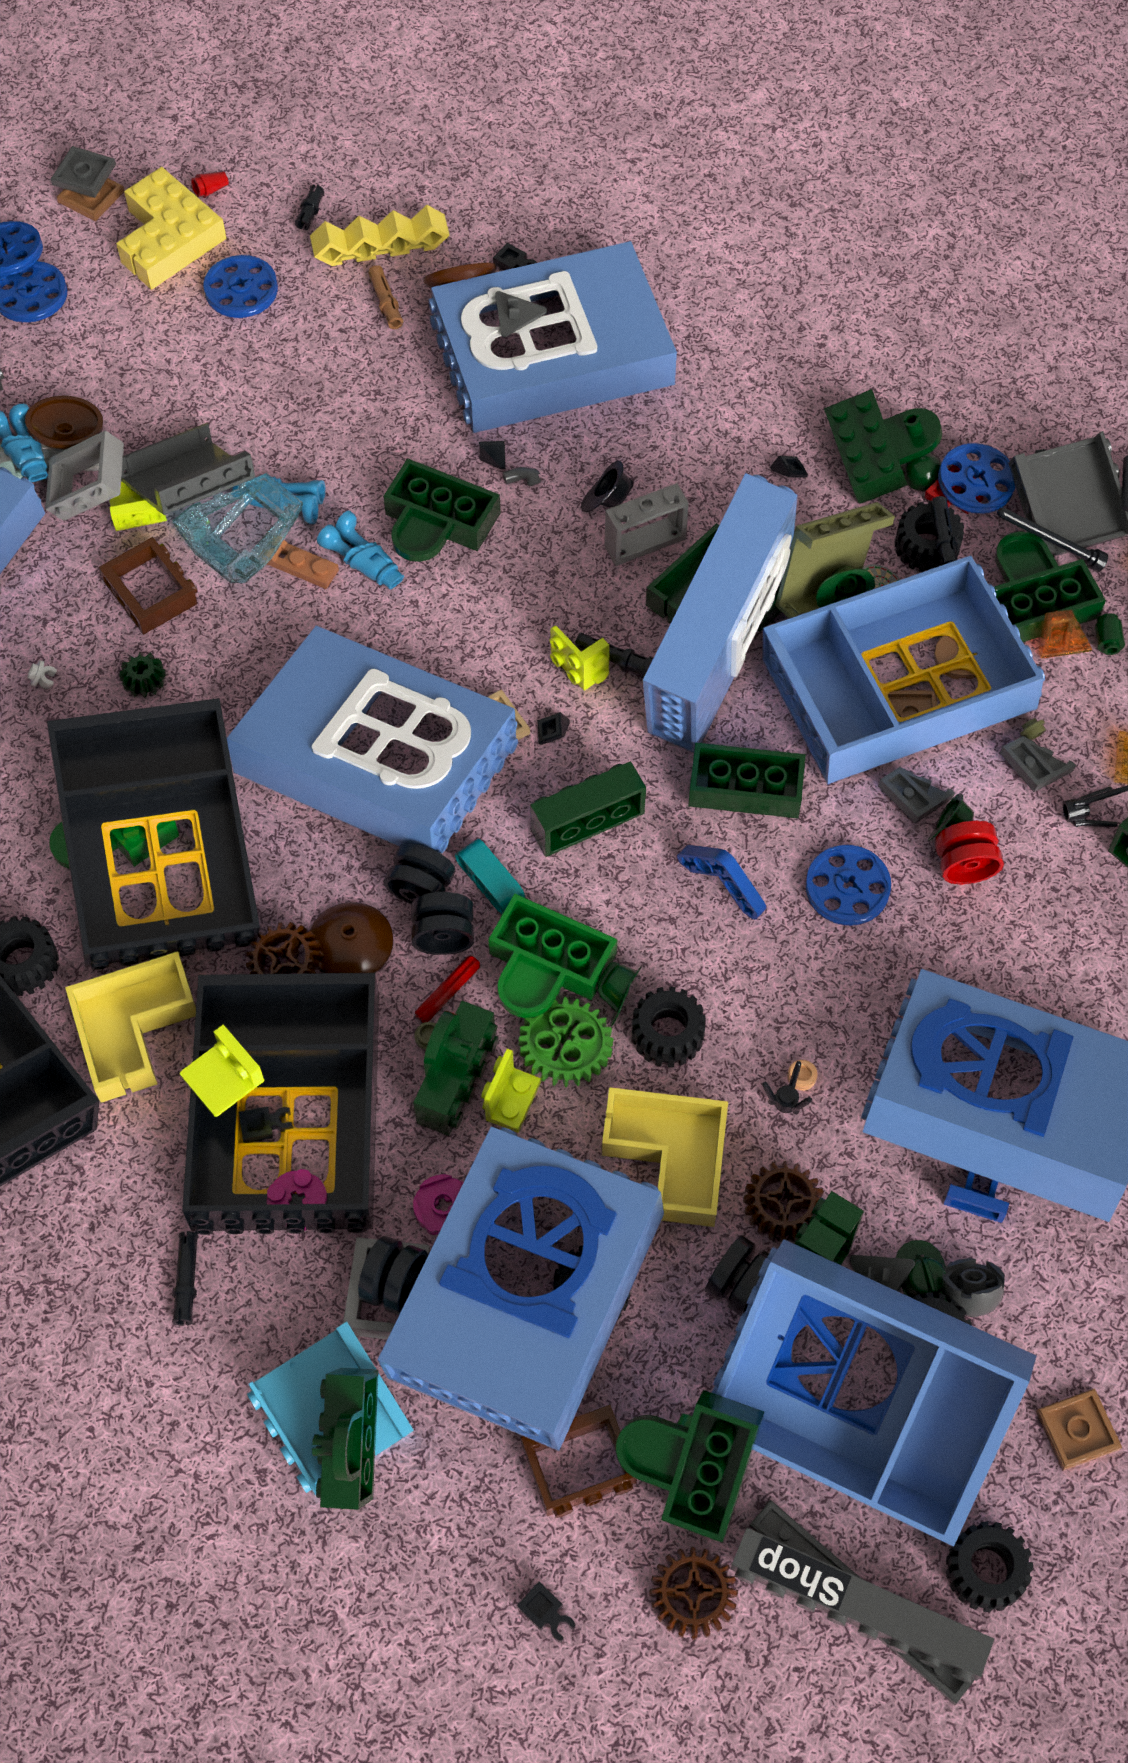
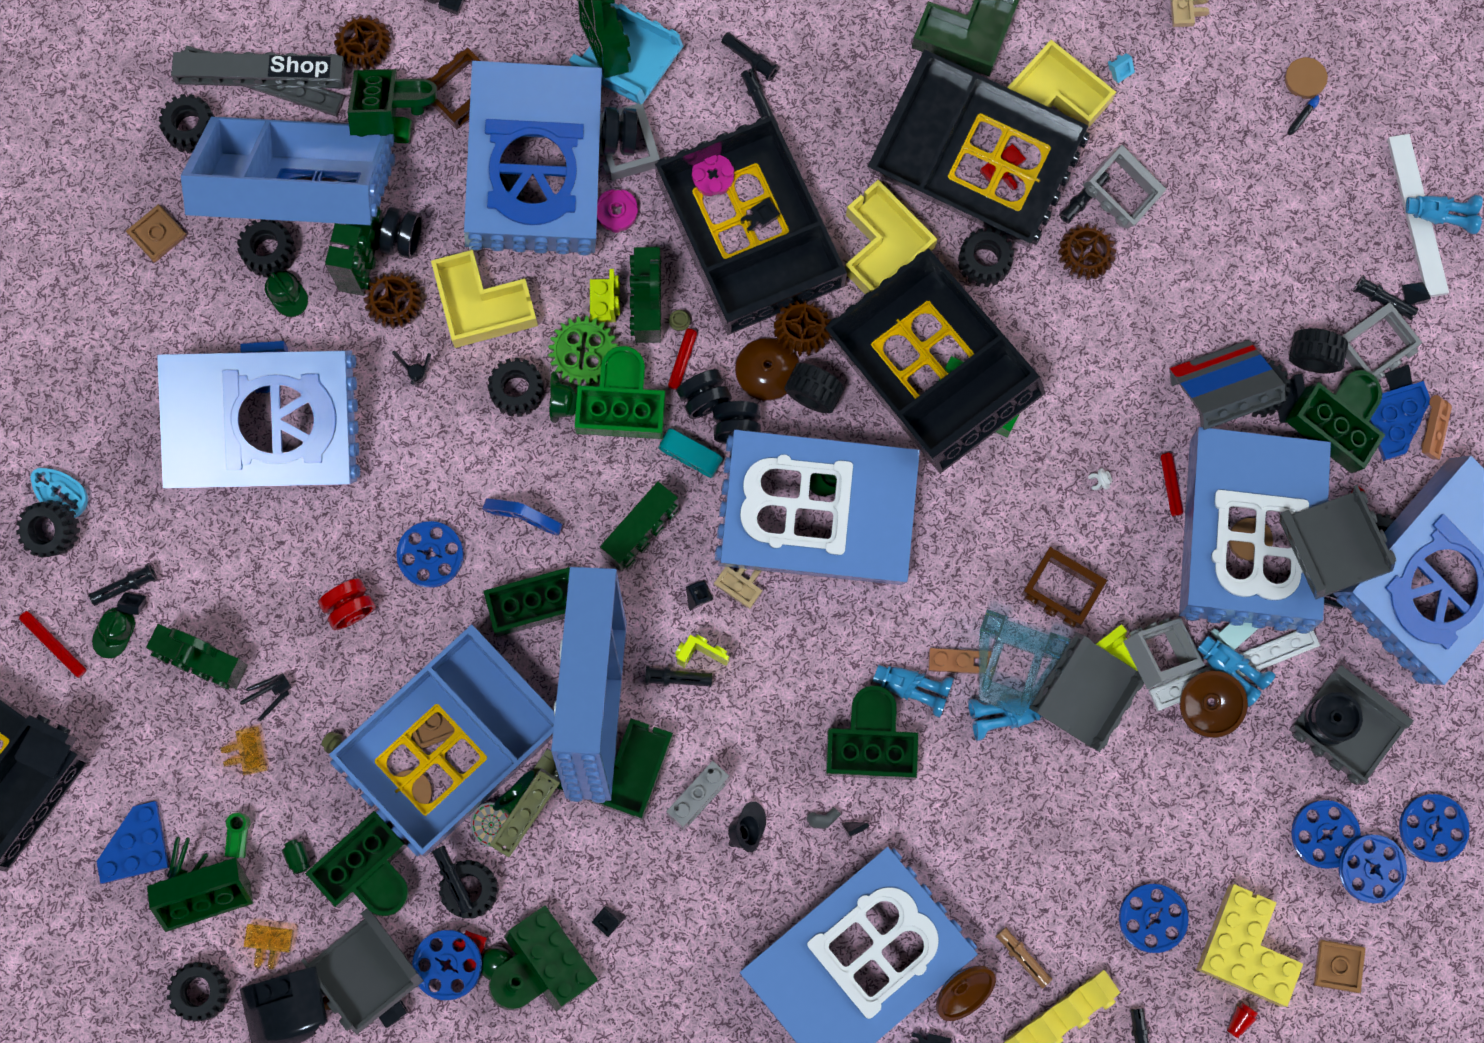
camera: 155 degrees right, 15 degrees up
(83, 171) = (1355, 978): dark grey plate -> none
(142, 674) = (1017, 504): dark green gear -> none
(160, 1331) = (757, 61): none -> black pin
(223, 1073) = (791, 206): neon yellow bracket -> none
(308, 876) = (814, 388): none -> black tyre
(515, 312) = (891, 952): dark grey piece -> none
(807, 1075) = (412, 397): light nougat tile -> none
(884, 1270) = (312, 276): dark grey piece -> none
(913, 793) = (405, 649): dark grey wing -> none
(954, 813) = (368, 630): dark green piece -> none
(974, 1286) = (248, 287): dark grey cylinder -> none
(1035, 763) = (321, 713): dark grey wing -> none
(1062, 635) = (334, 833): clear orange wing -> none
(1094, 559) = (328, 927): black piece -> none

